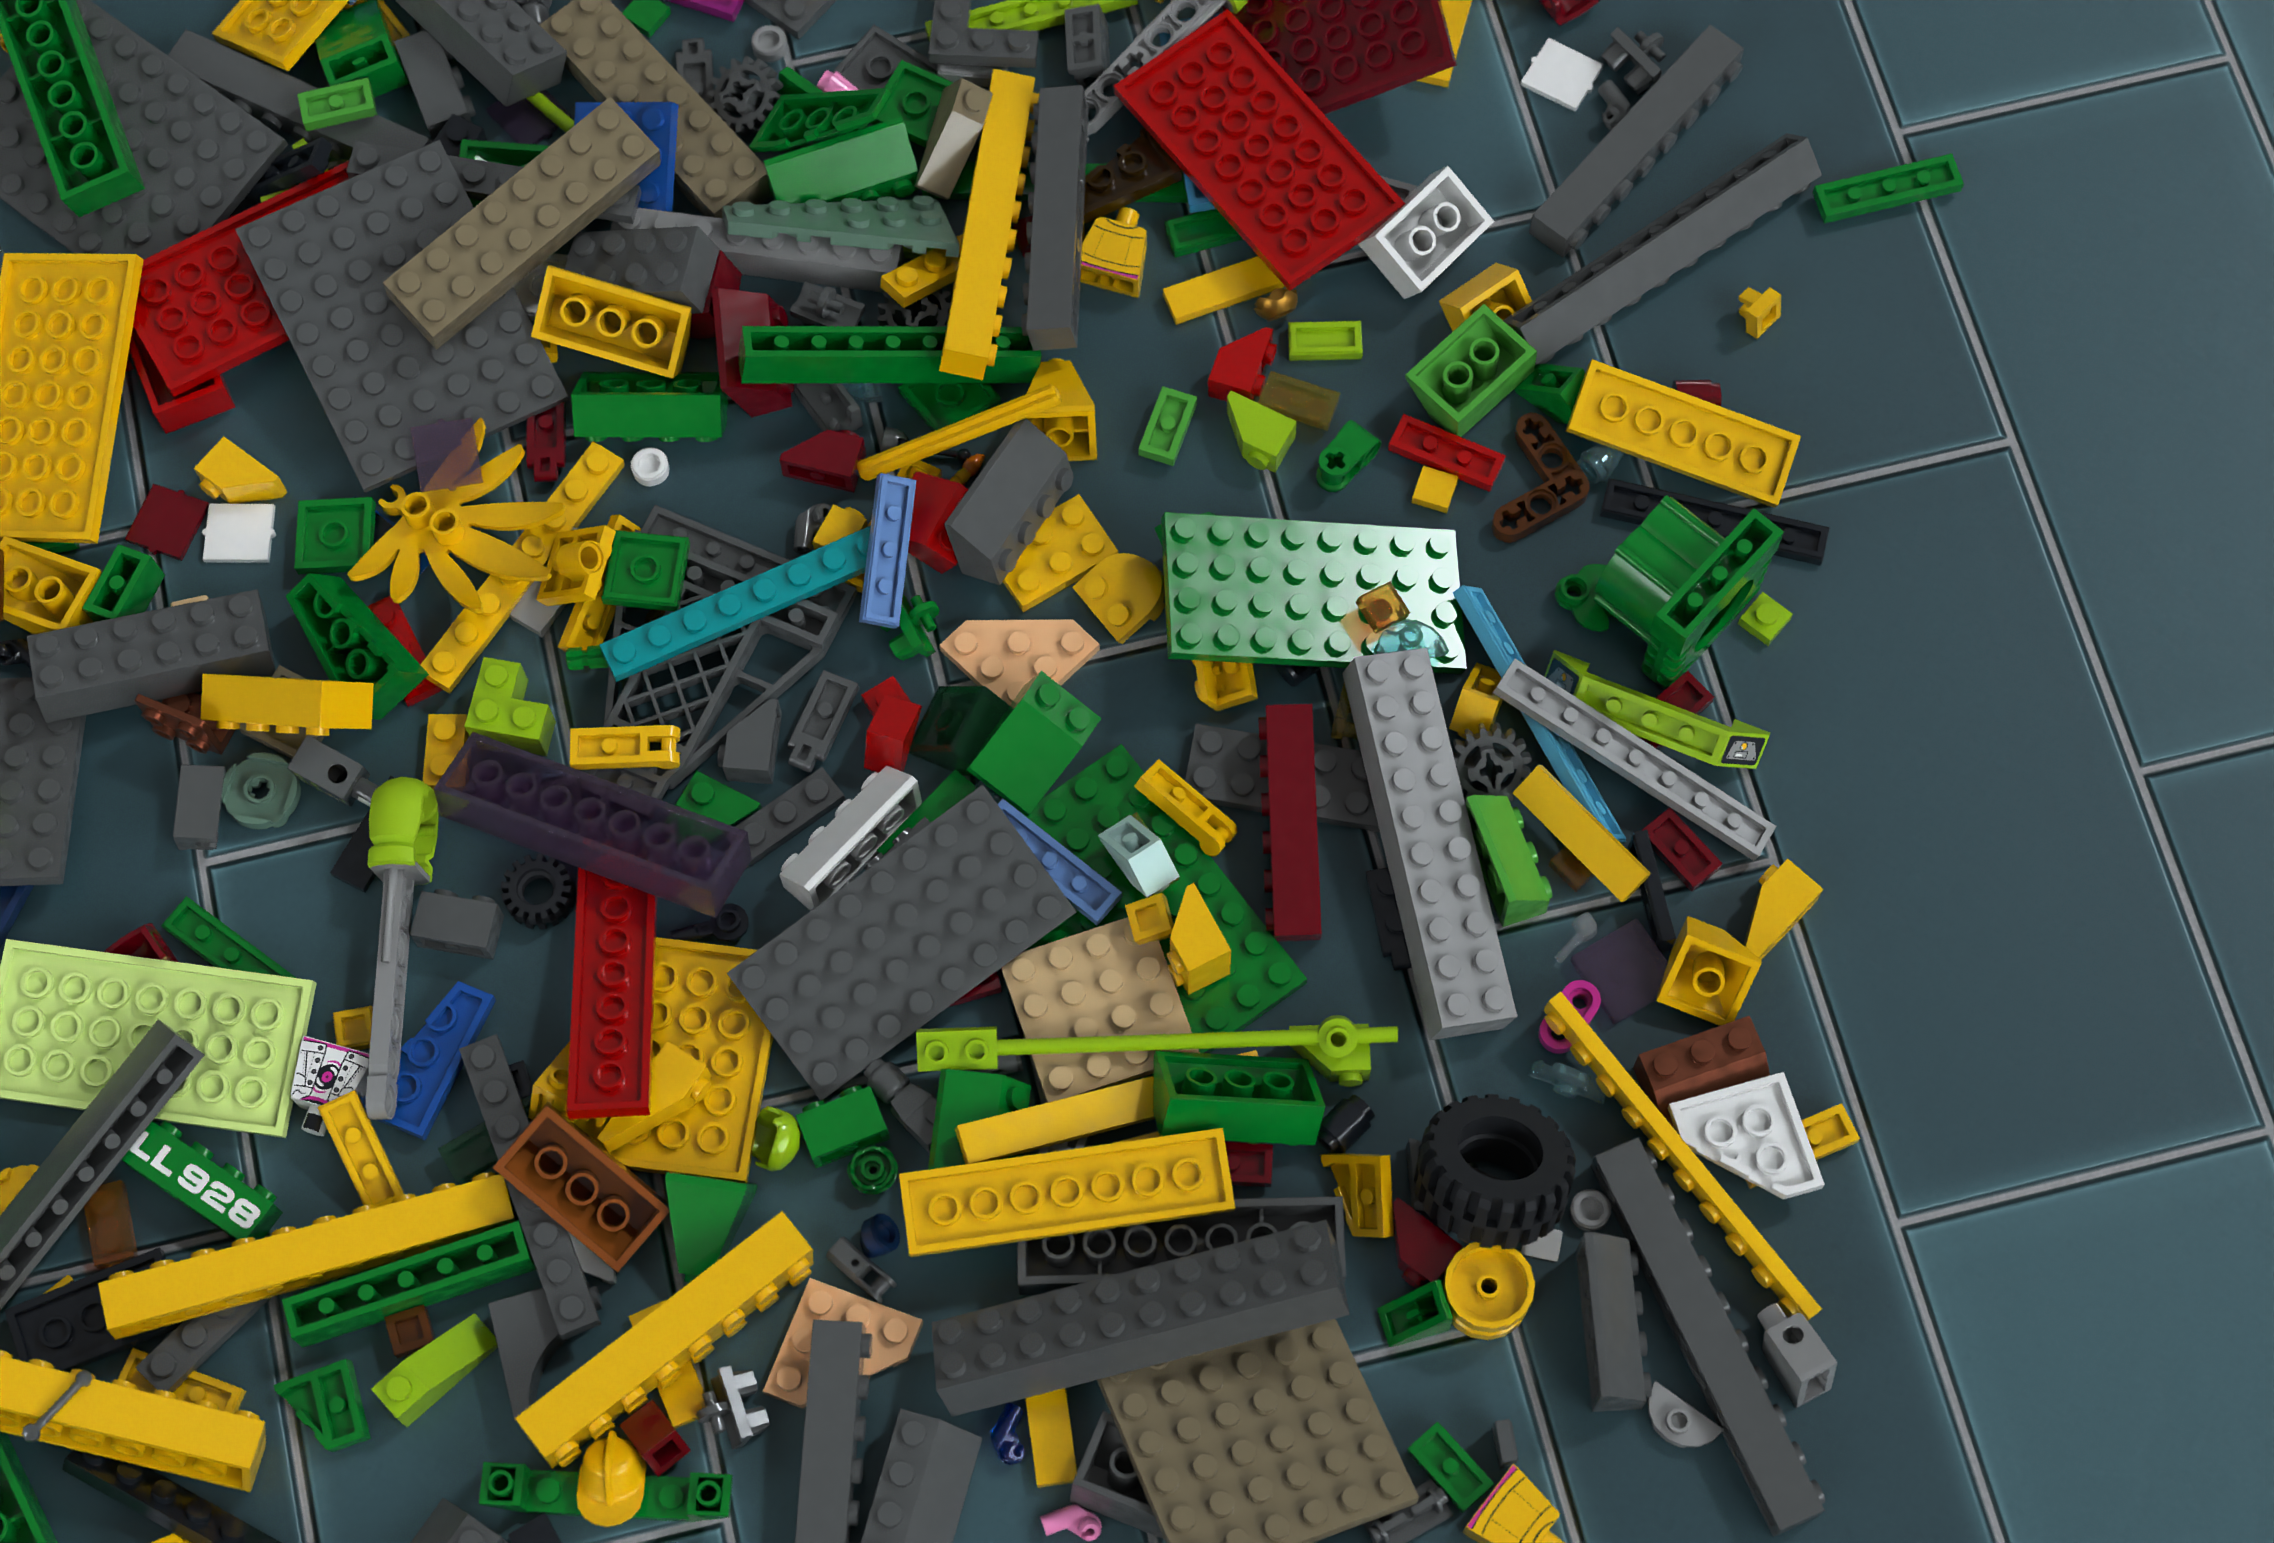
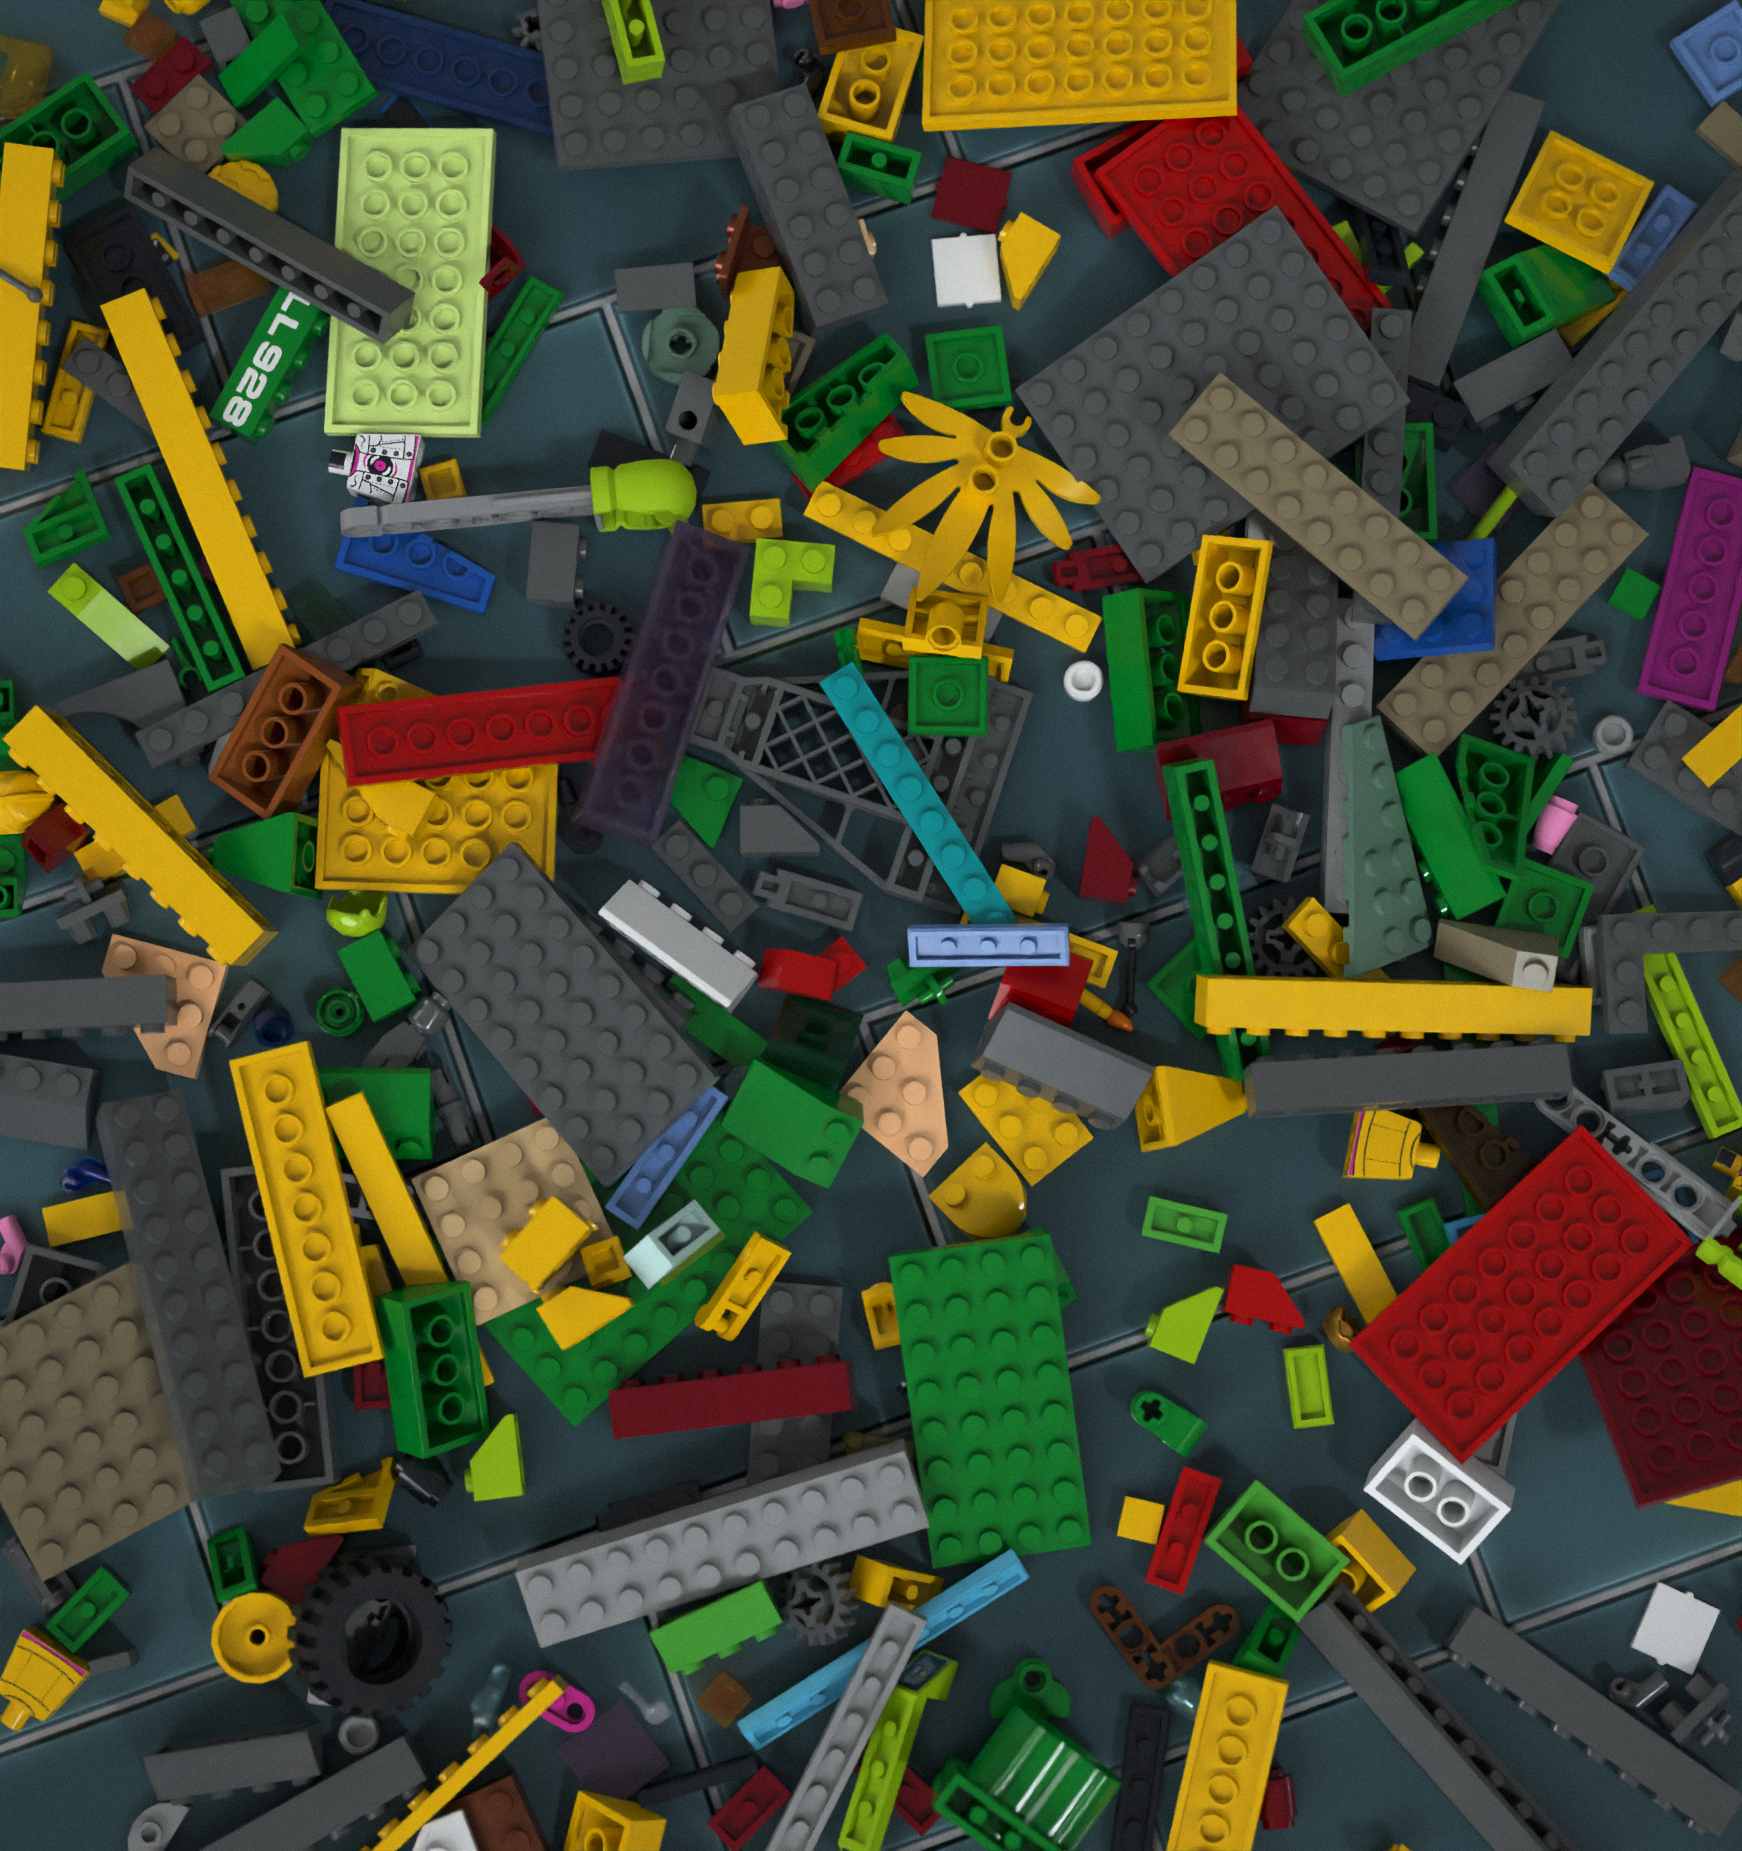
camera: 80 degrees right, 15 degrees up
(337, 104) = (1463, 282): bright green plate -> none
(361, 1150) = (311, 512): yellow tile -> none
(446, 455) = (1058, 469): piece -> none
(483, 1303) = (185, 662): none -> green hand
(624, 747) = (745, 702): yellow plate -> none
(959, 432) = (1134, 1004): yellow axle -> none
(979, 1049) = (455, 1105): lime bar -> none
(1124, 962) = (545, 1242): none -> yellow brick
(1300, 400) = (1229, 1364): clear yellow plate -> none
(1382, 607) = (975, 1475): clear orange plate -> none
(1410, 636) = (943, 1504): clear light blue plate -> none
(1581, 833) = (747, 1703): yellow tile -> none

